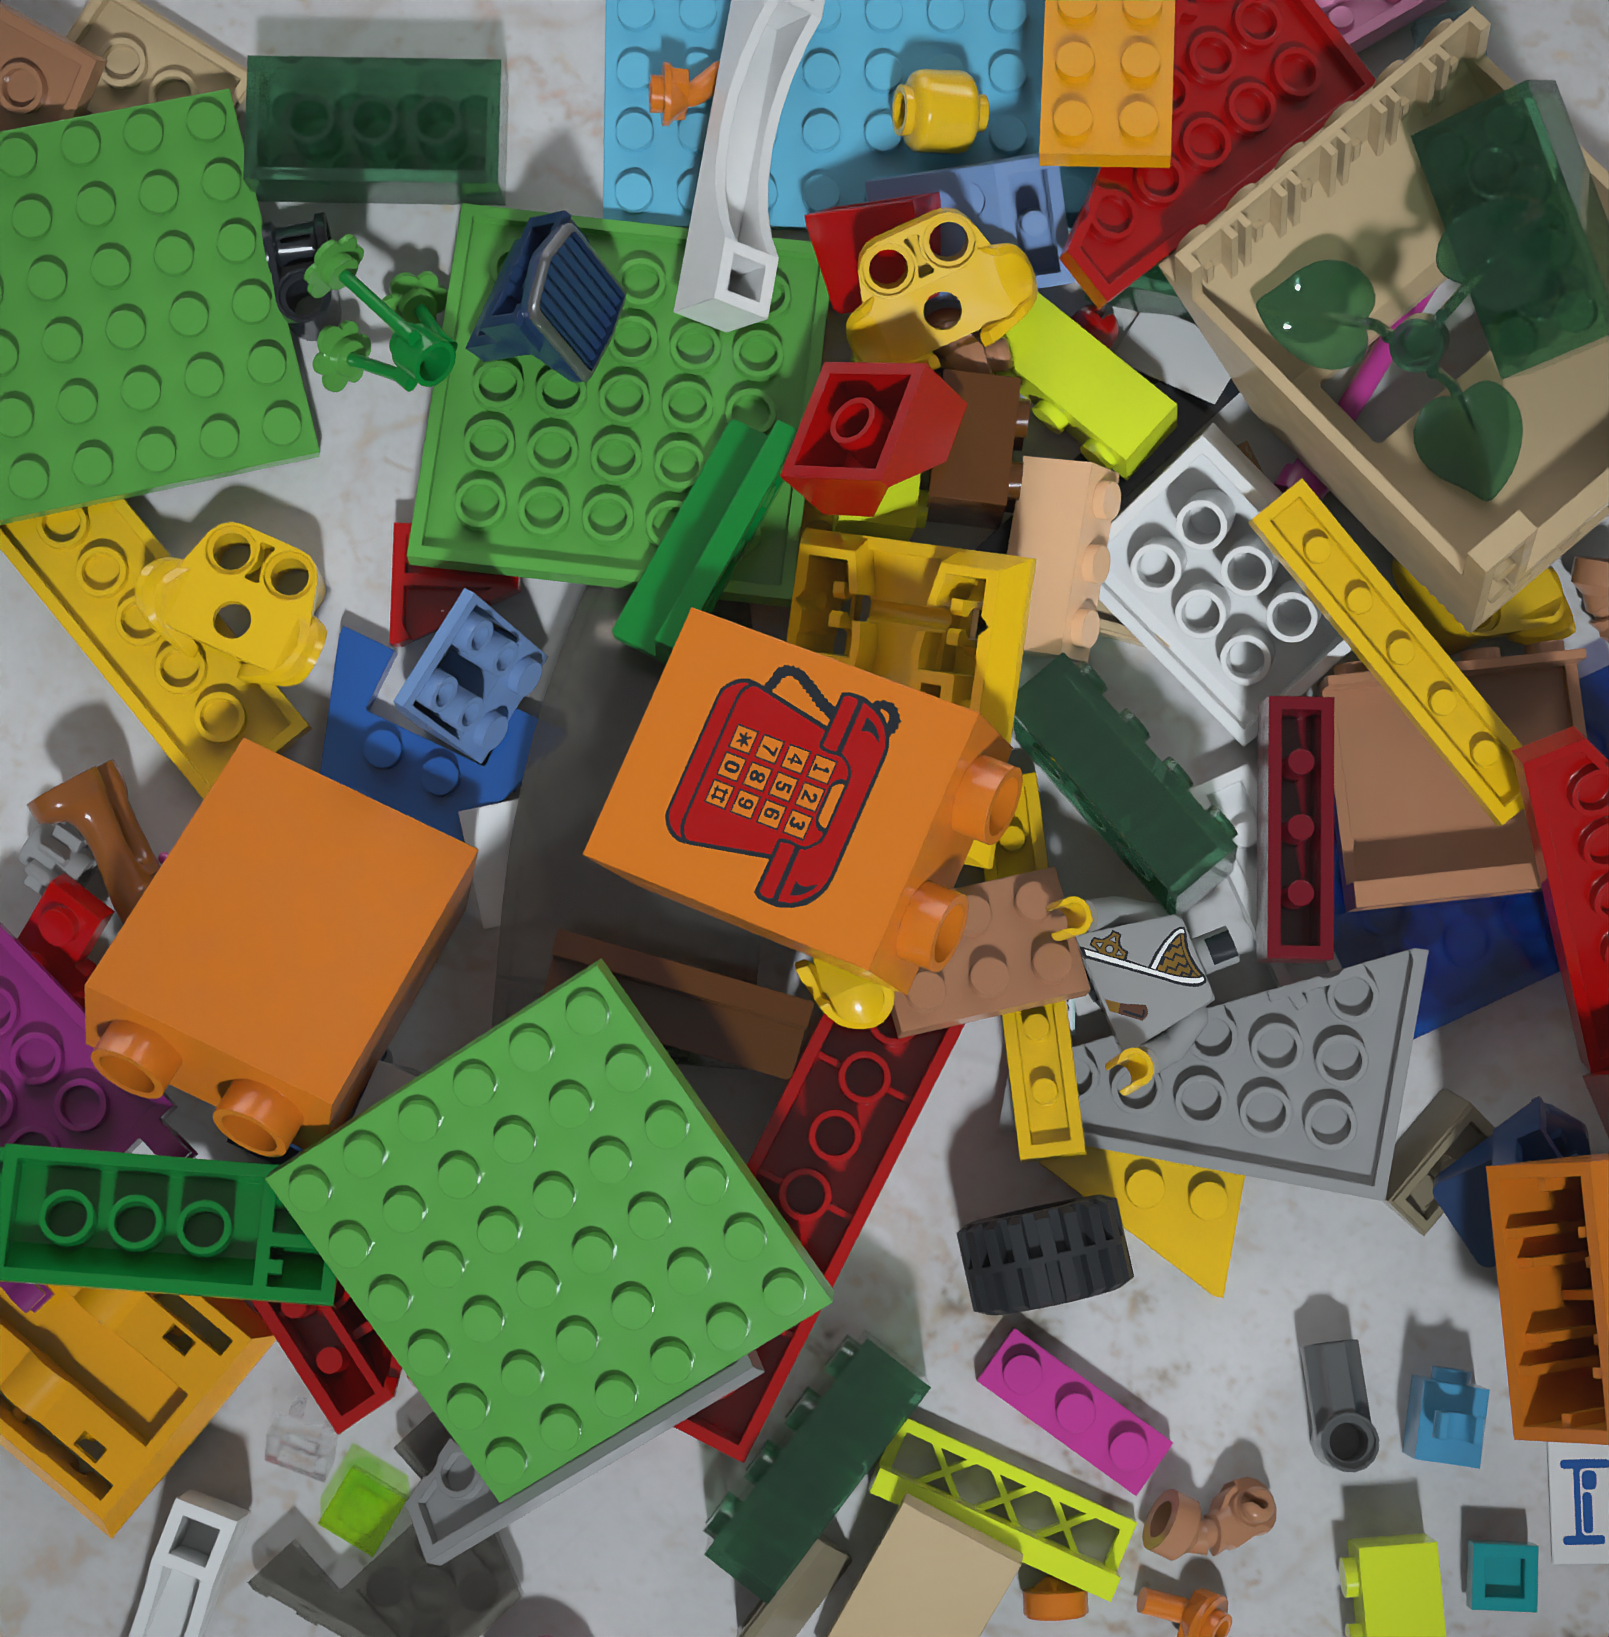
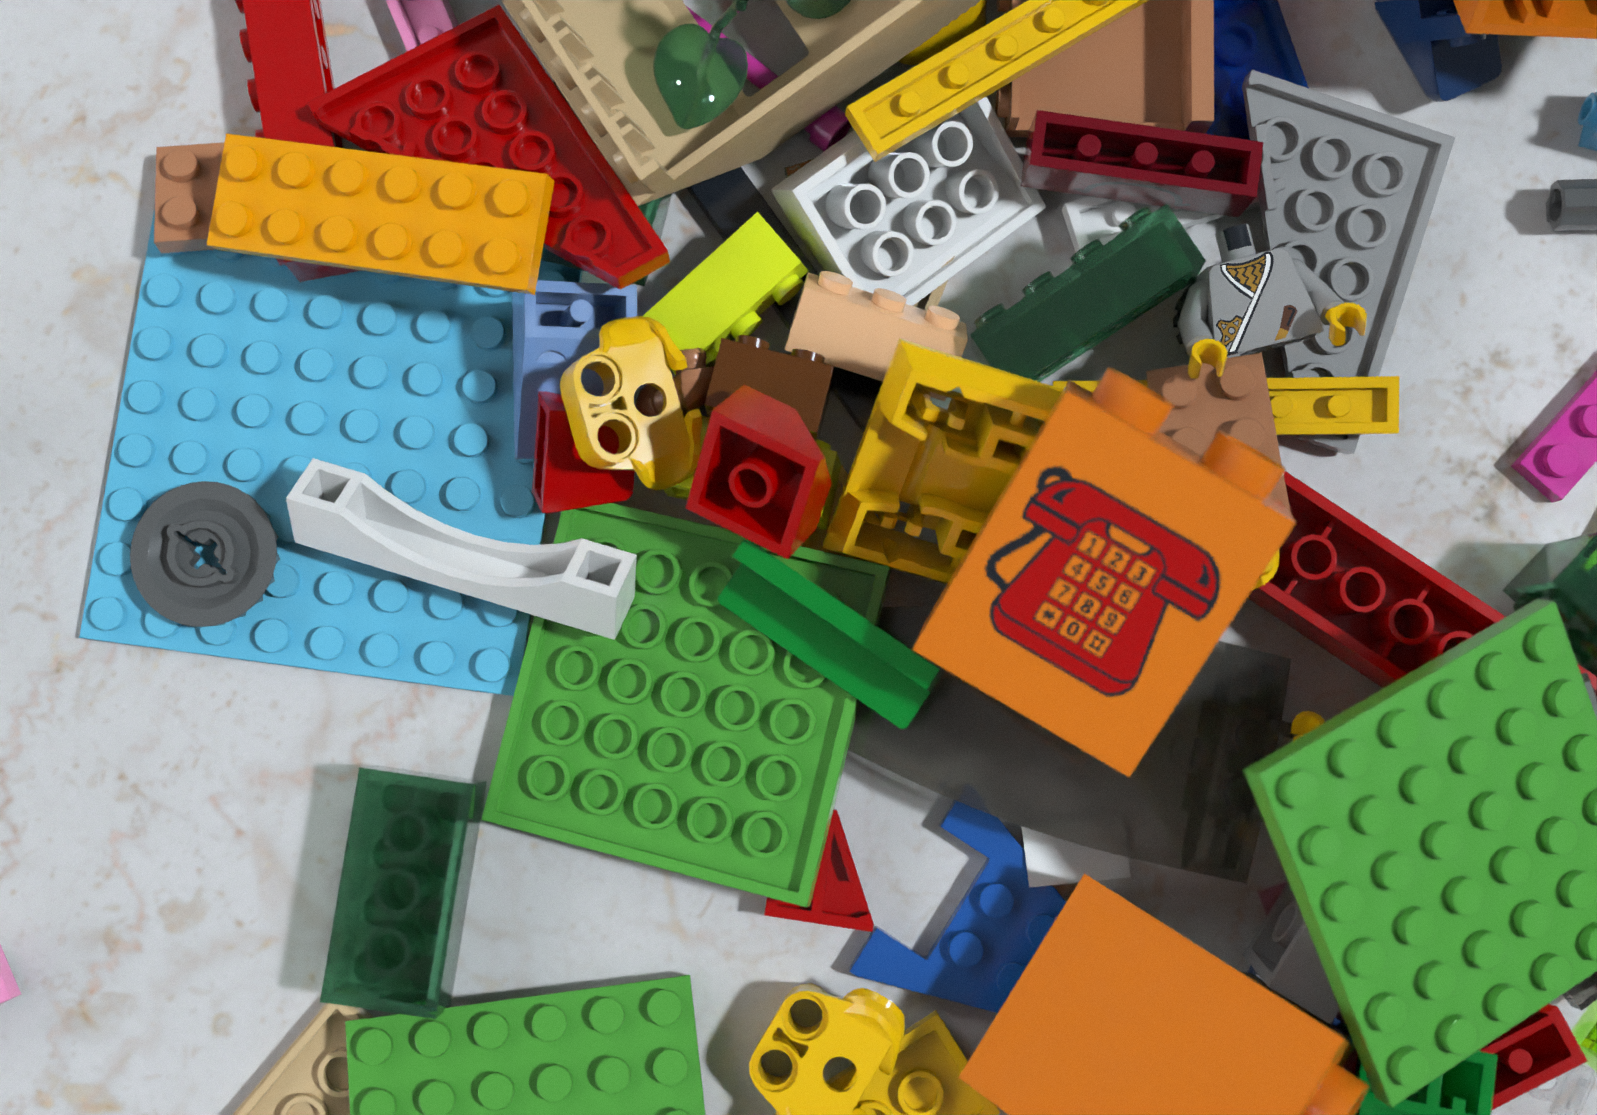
camera: 85 degrees left, 0 degrees up
(289, 254) = (514, 972): black piece -> none
(418, 344) = (619, 874): plant -> none
(471, 678) = (923, 863): medium blue slope -> none
(551, 301) = (590, 750): dark blue piece -> none
(674, 93) = (409, 616): orange plate -> none
(694, 1006) = (1237, 713): reddish brown panel -> none
(939, 111) = (462, 385): yellow head -> none
(1045, 1255) = (1479, 423): black tyre -> none
(1104, 330) = (668, 280): red hinge -> none
(1170, 1206) = (1434, 319): yellow wing -> none
(1174, 354) = (702, 216): white sticker -> none
(1431, 1144) = (1392, 89): dark tan slope -> none

